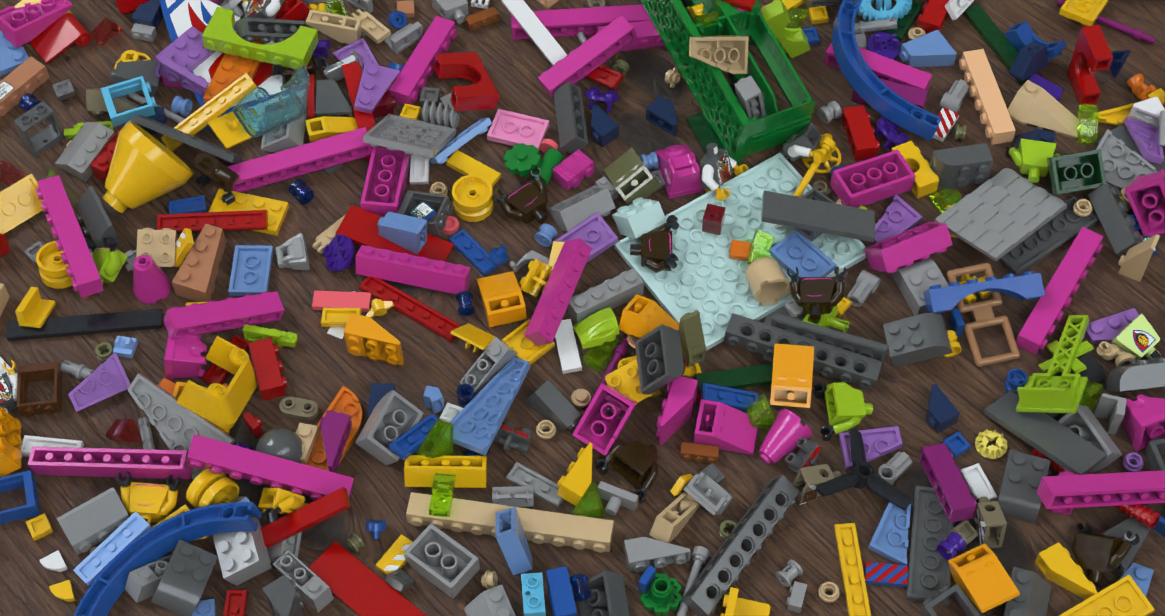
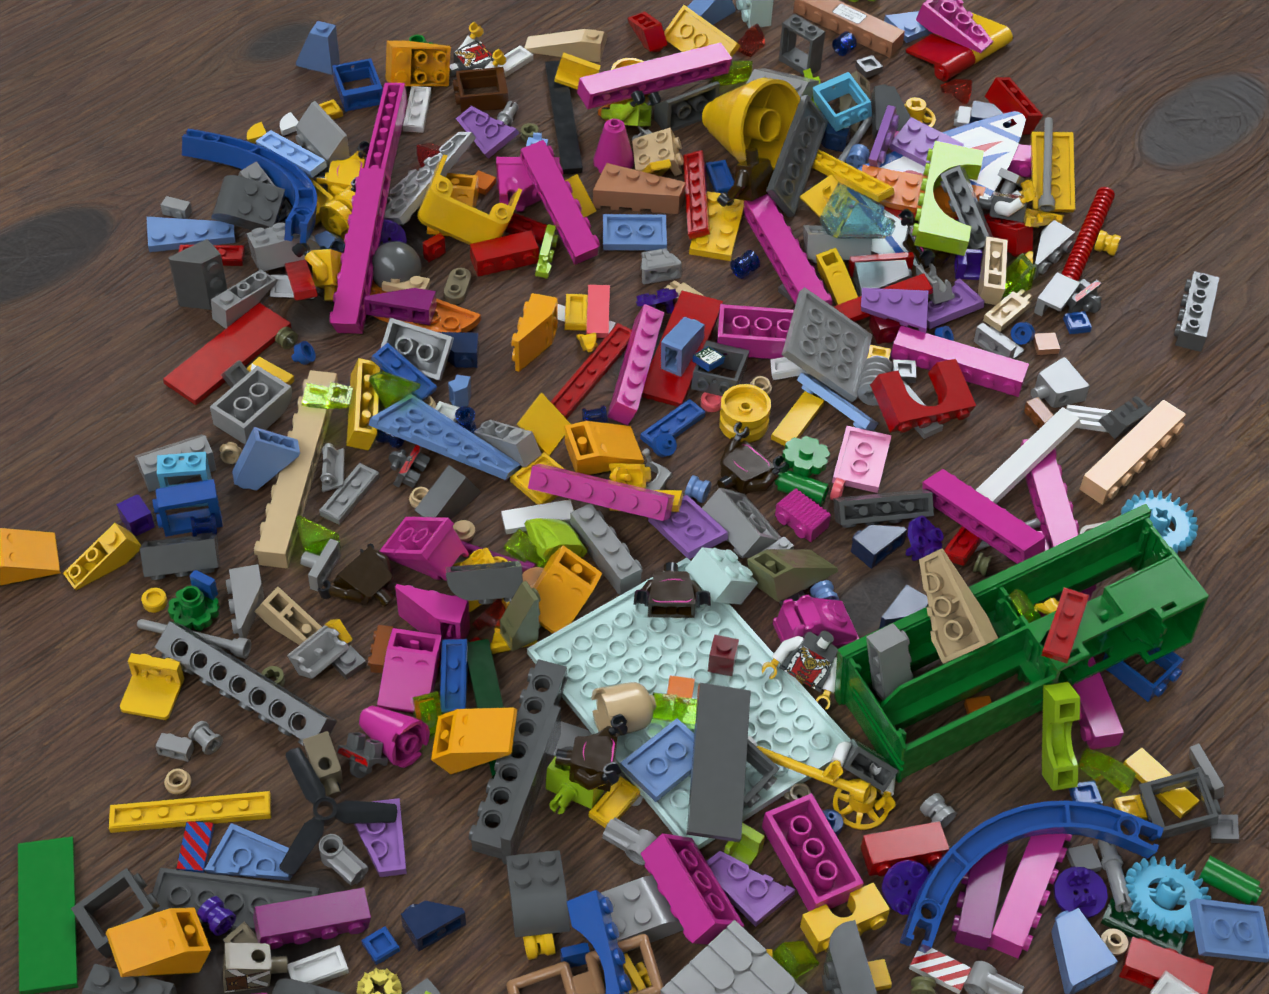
camera: 85 degrees right, 5 degrees down
(579, 477) = (351, 524): yellow slope -> none
(844, 407) = (436, 804): lime torso -> none

